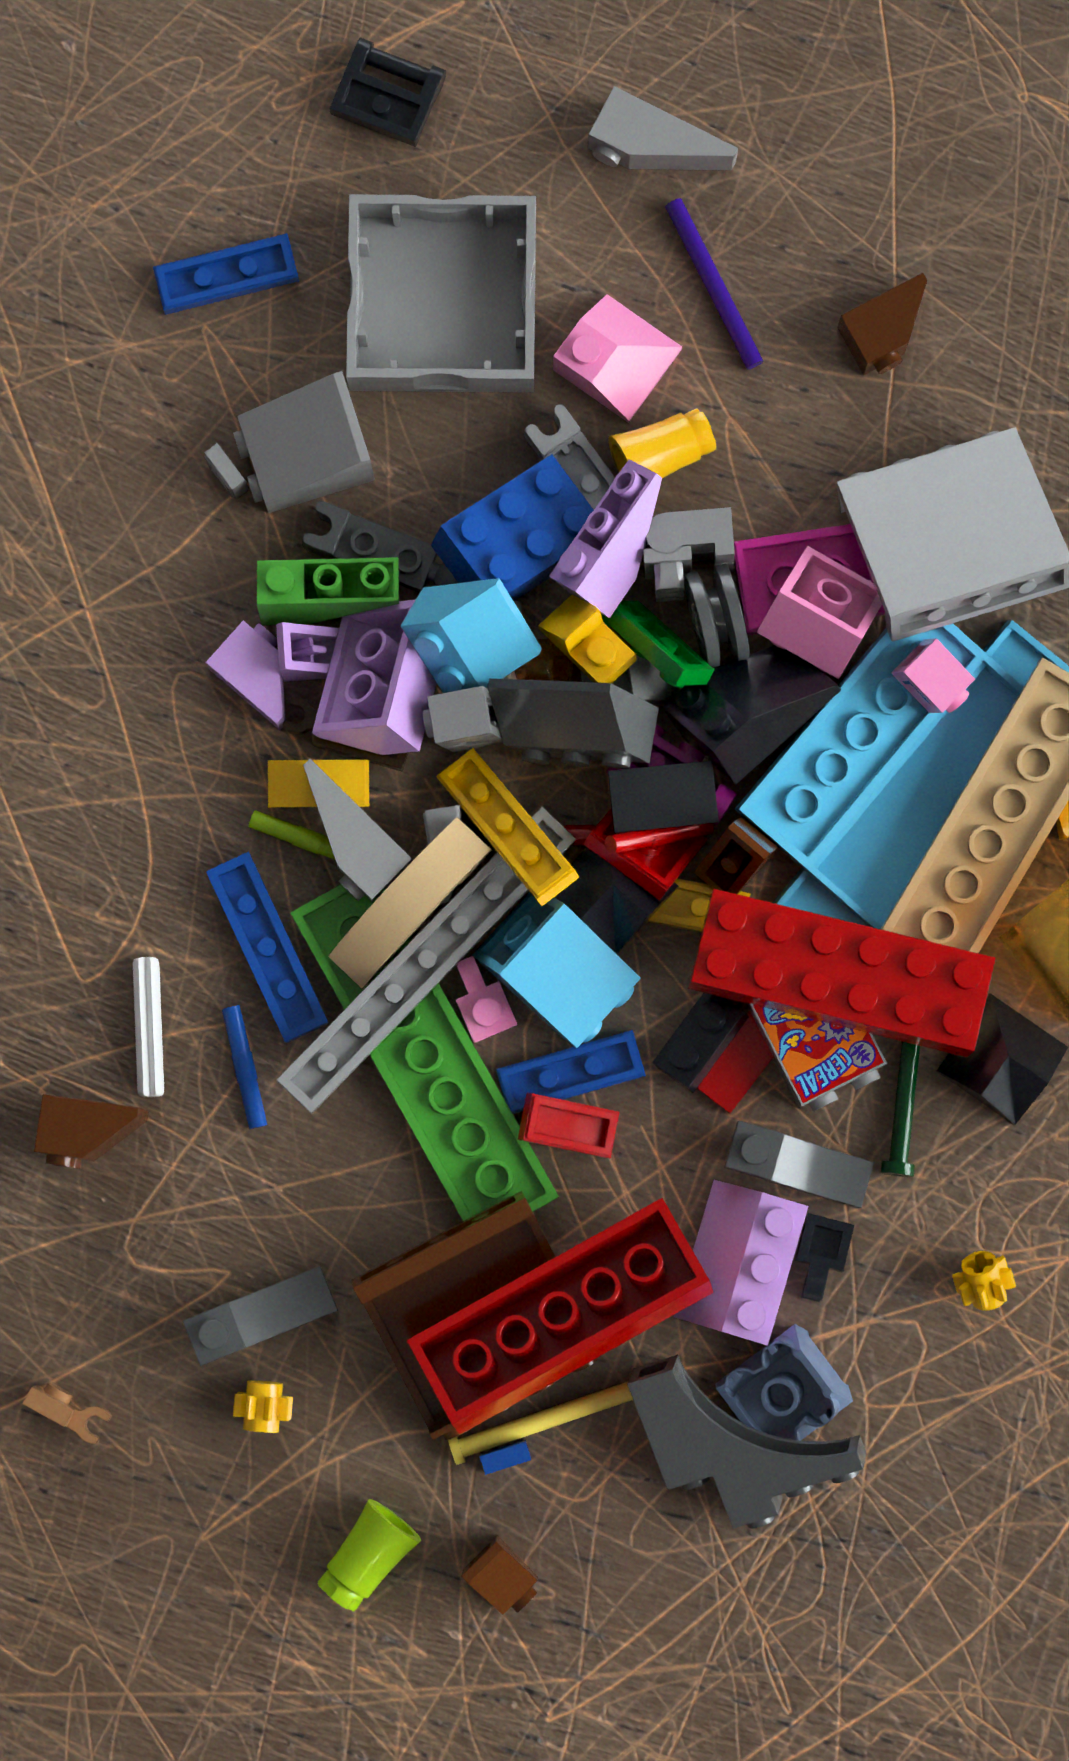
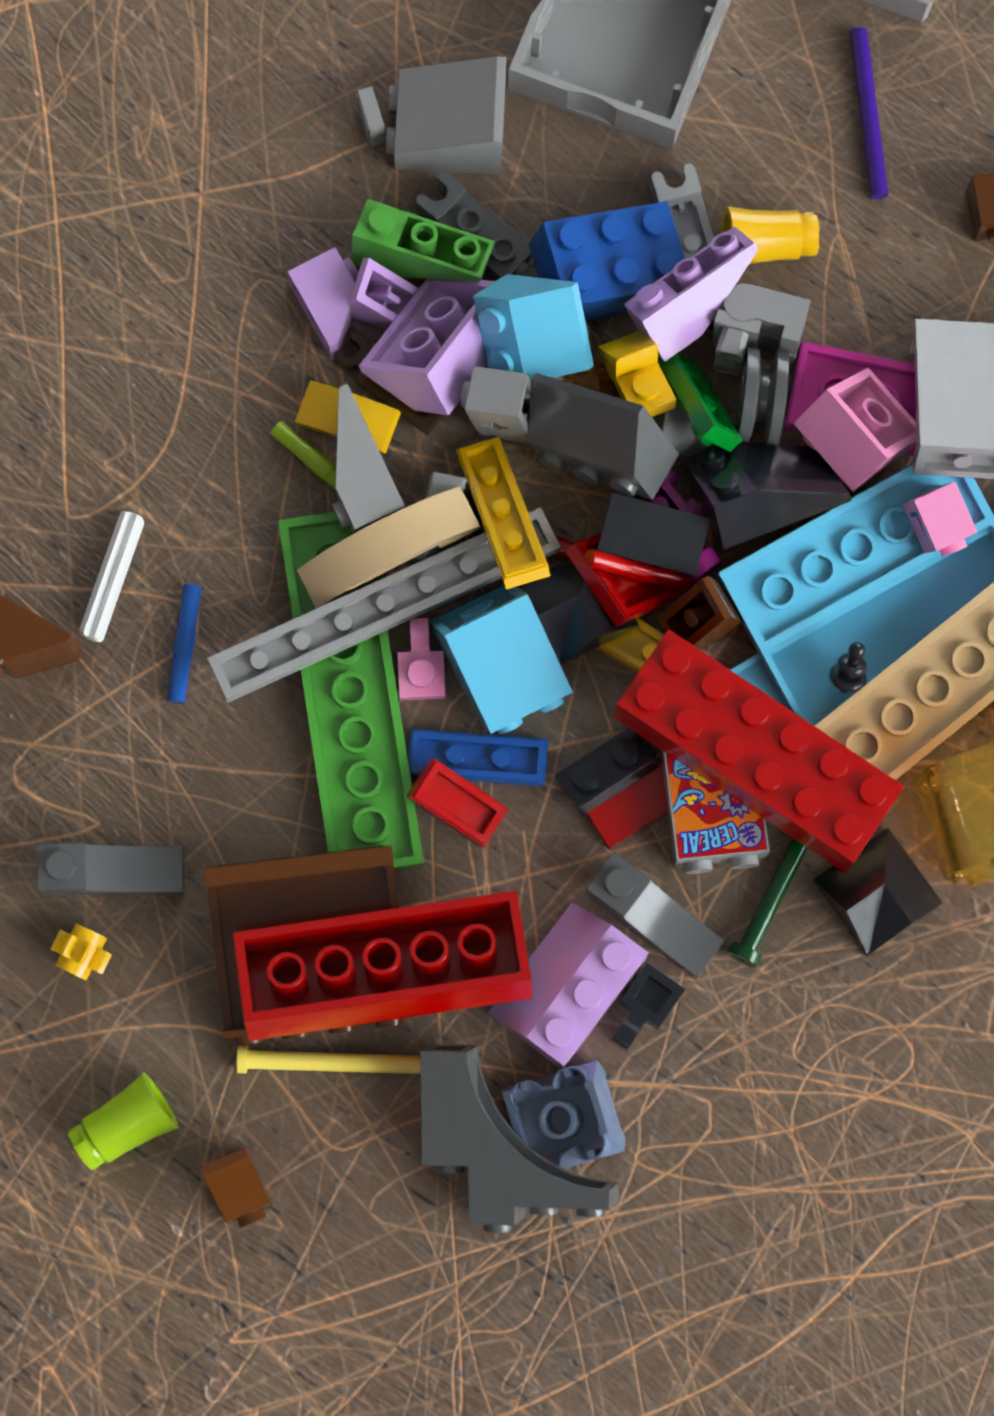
camera: 15 degrees right, 5 degrees down
(267, 947) = (245, 544): blue plate -> none
(505, 1457) = (284, 1081): blue tile -> none
(615, 357) = (755, 143): bright pink slope -> none
(900, 857) = (850, 670): none -> black hair
(984, 1280) = (786, 1084): yellow gear -> none

